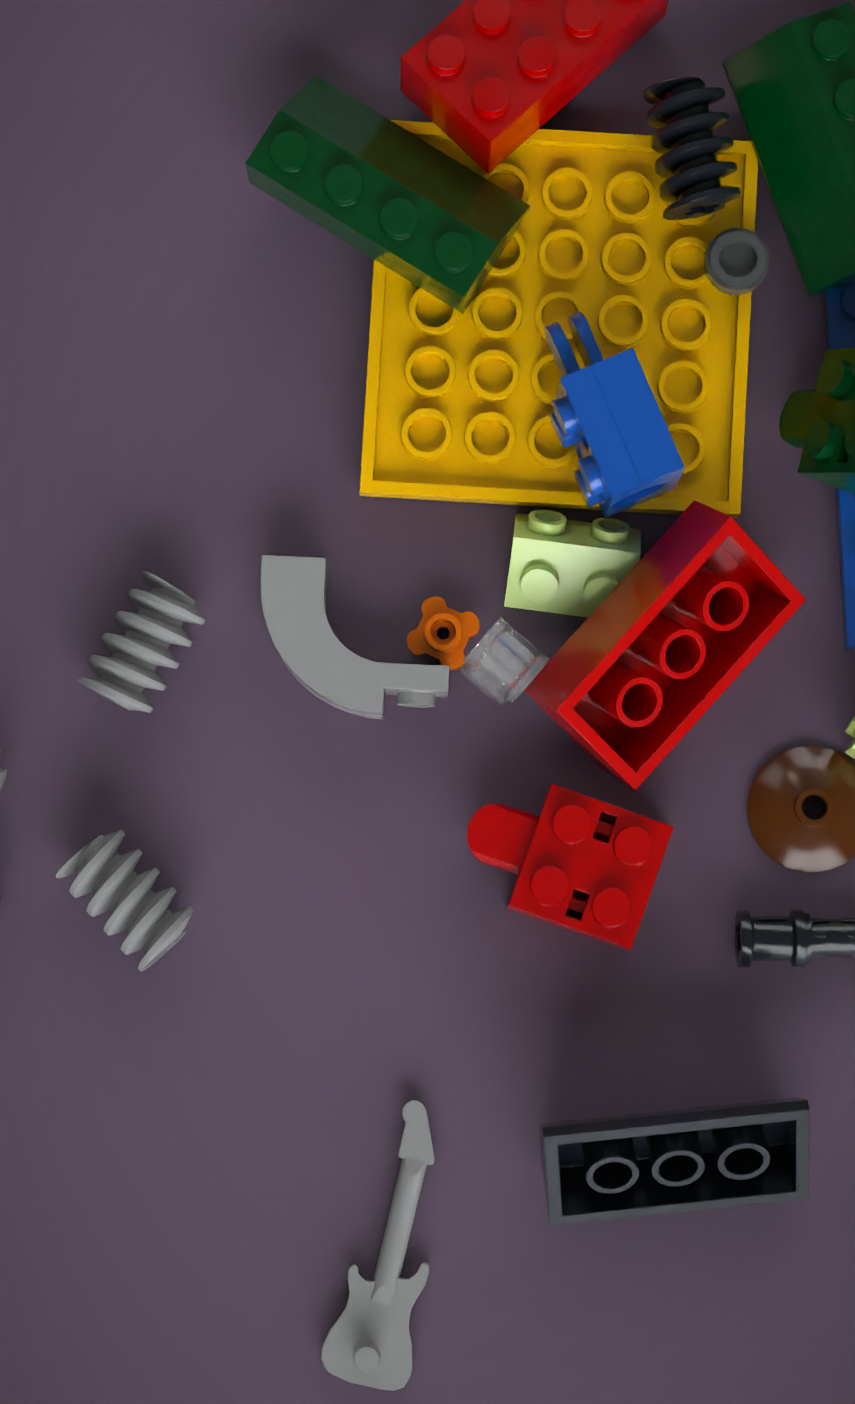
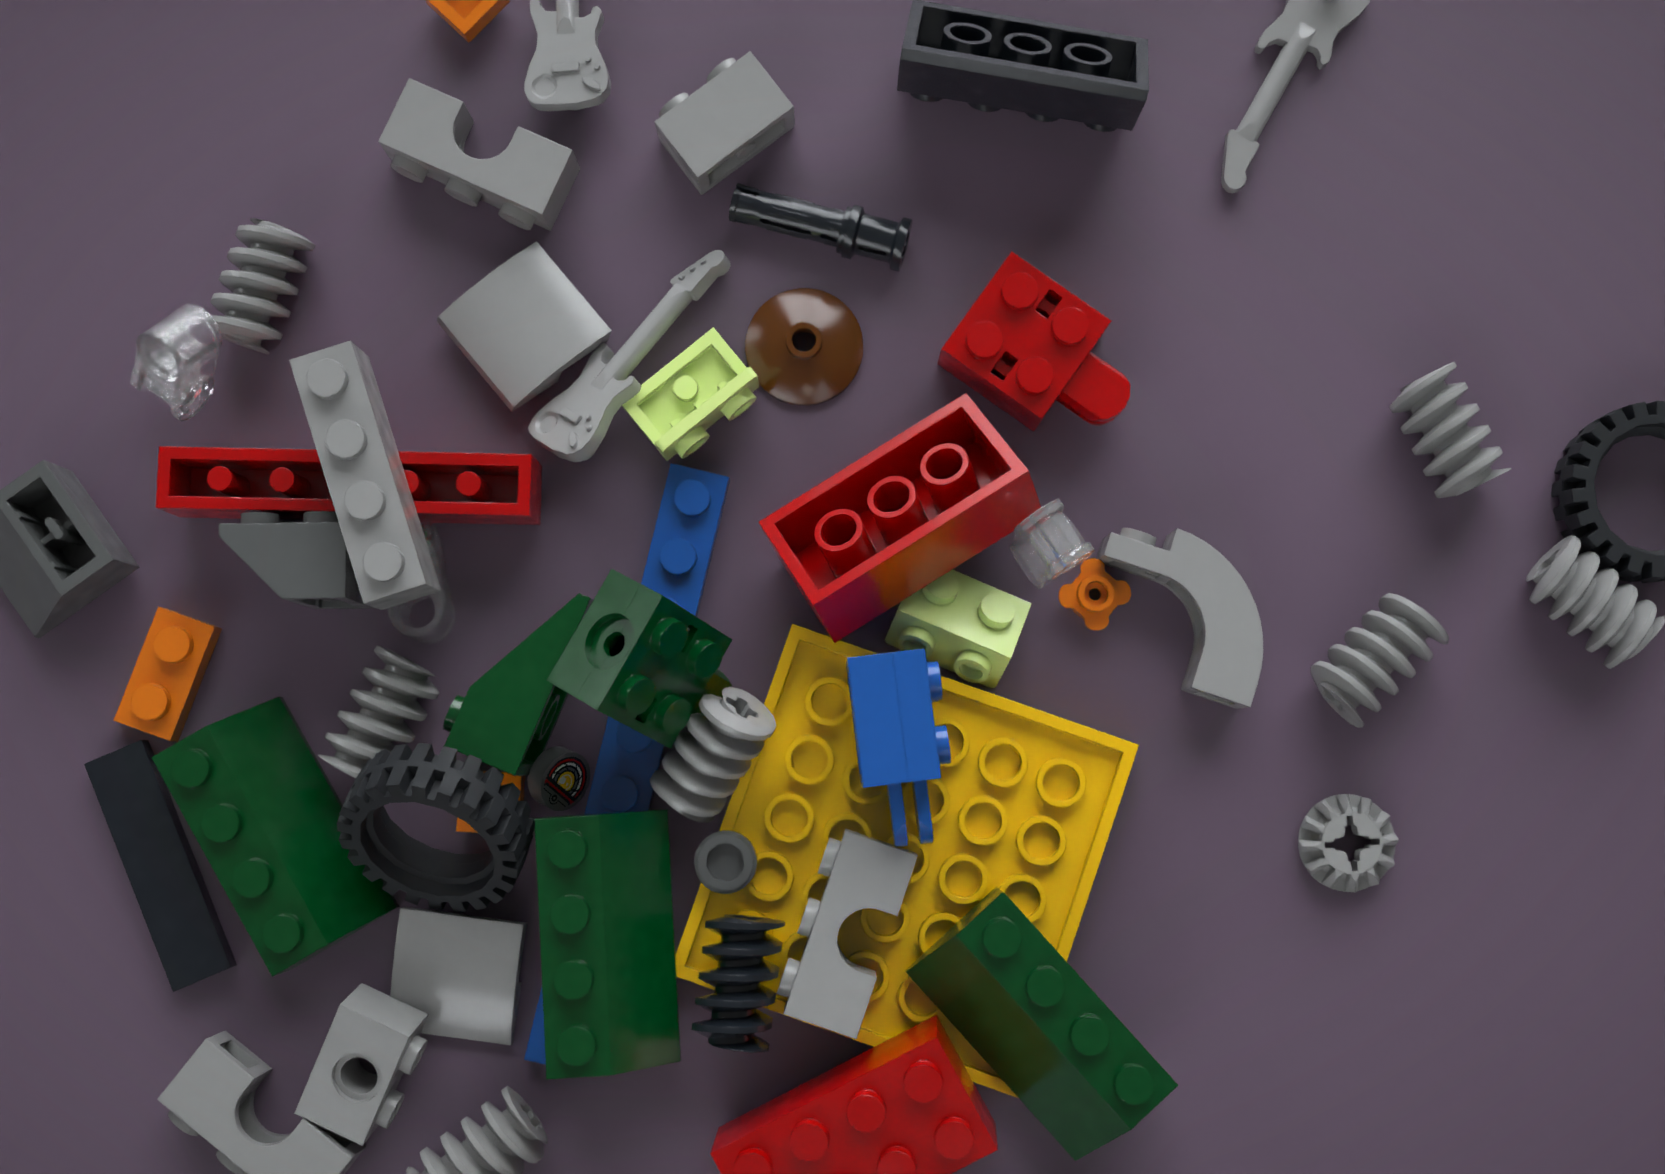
camera: 165 degrees left, 0 degrees up
(149, 469) = (1331, 866): none -> light grey gear
(604, 170) = (825, 984): none -> light grey arch
(781, 360) = (713, 753): none -> light grey piece

